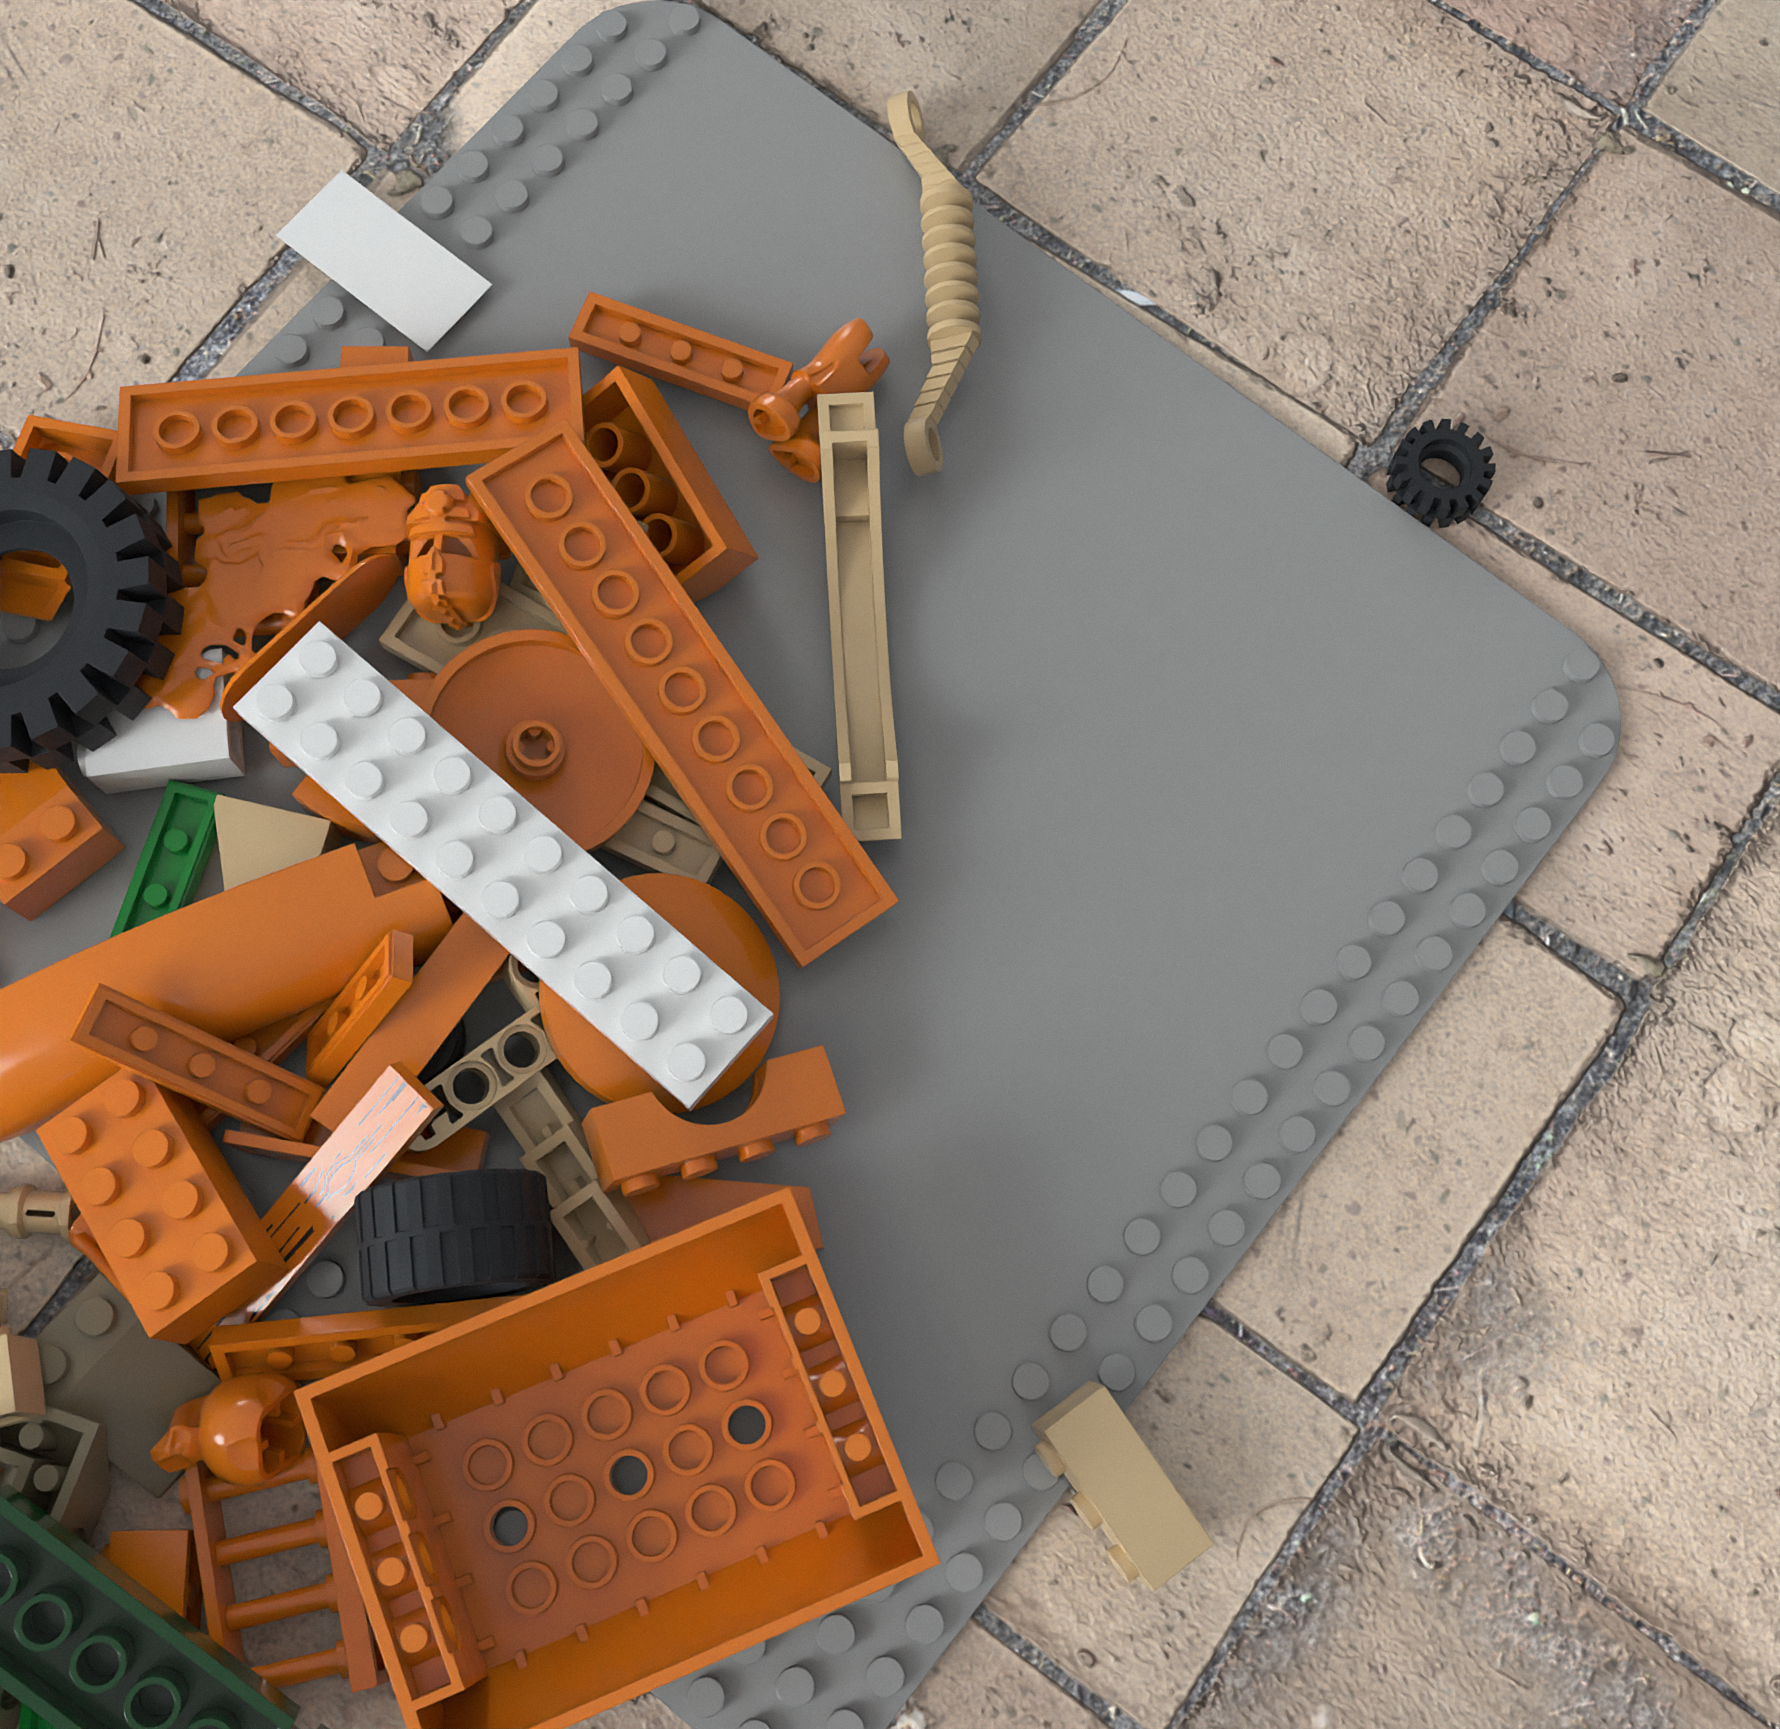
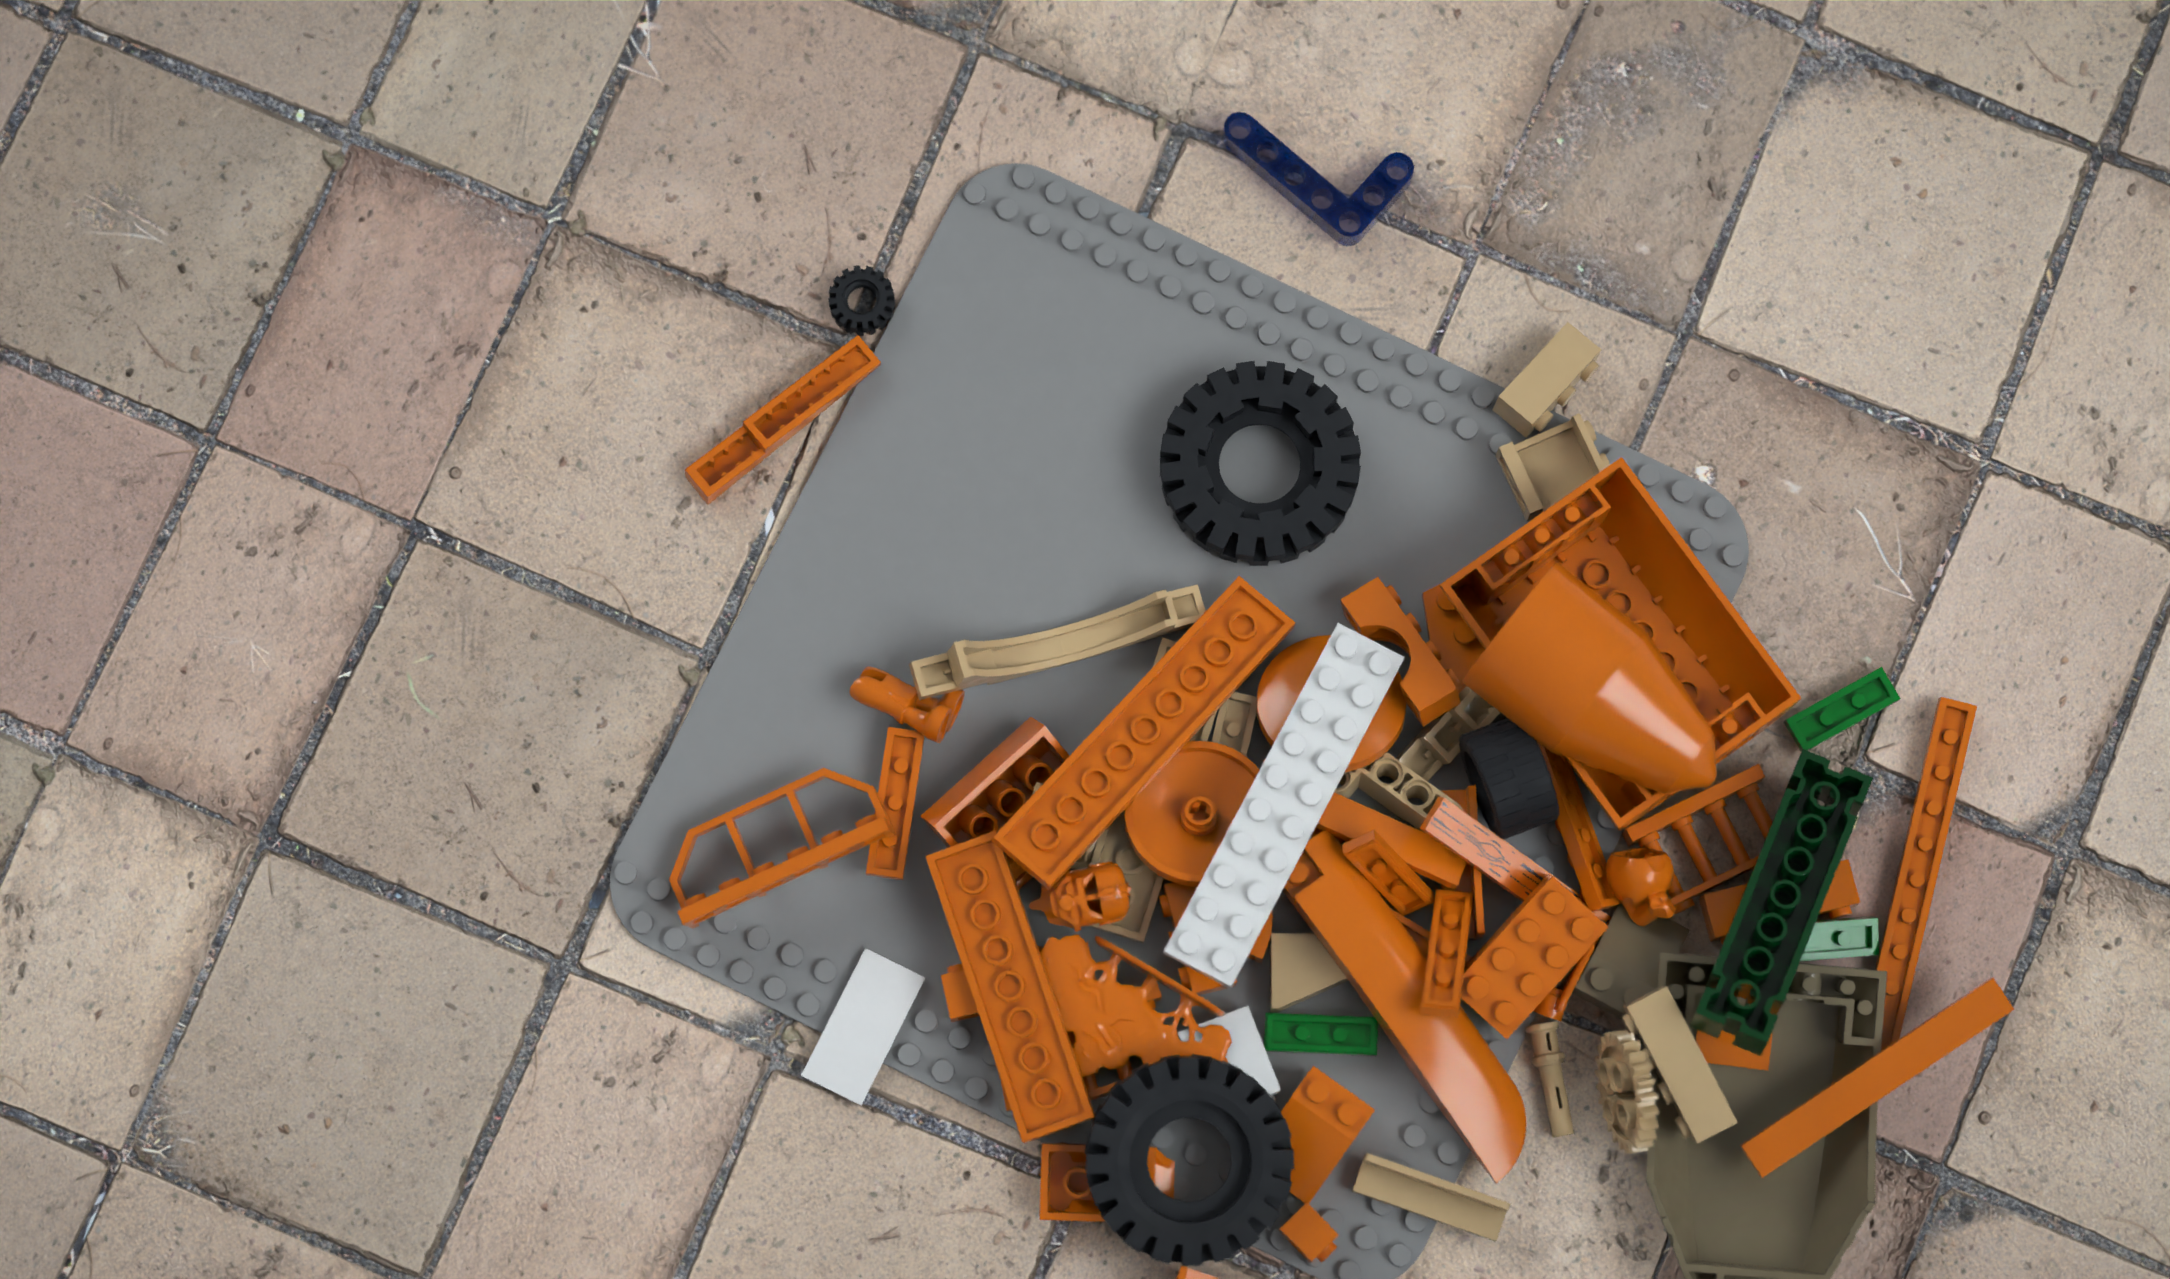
camera: 100 degrees left, 5 degrees up
(530, 1409) = (1594, 688): none -> orange windscreen
(621, 191) = (799, 860): none -> orange plate
(948, 281) = (850, 624): tan piece -> none
(970, 1458) = (1551, 464): none -> tan panel
(1096, 873) = (1270, 398): none -> black tyre
(1281, 329) = (781, 419): none -> orange slope
(1516, 1175) = (1316, 185): none -> clear blue beam

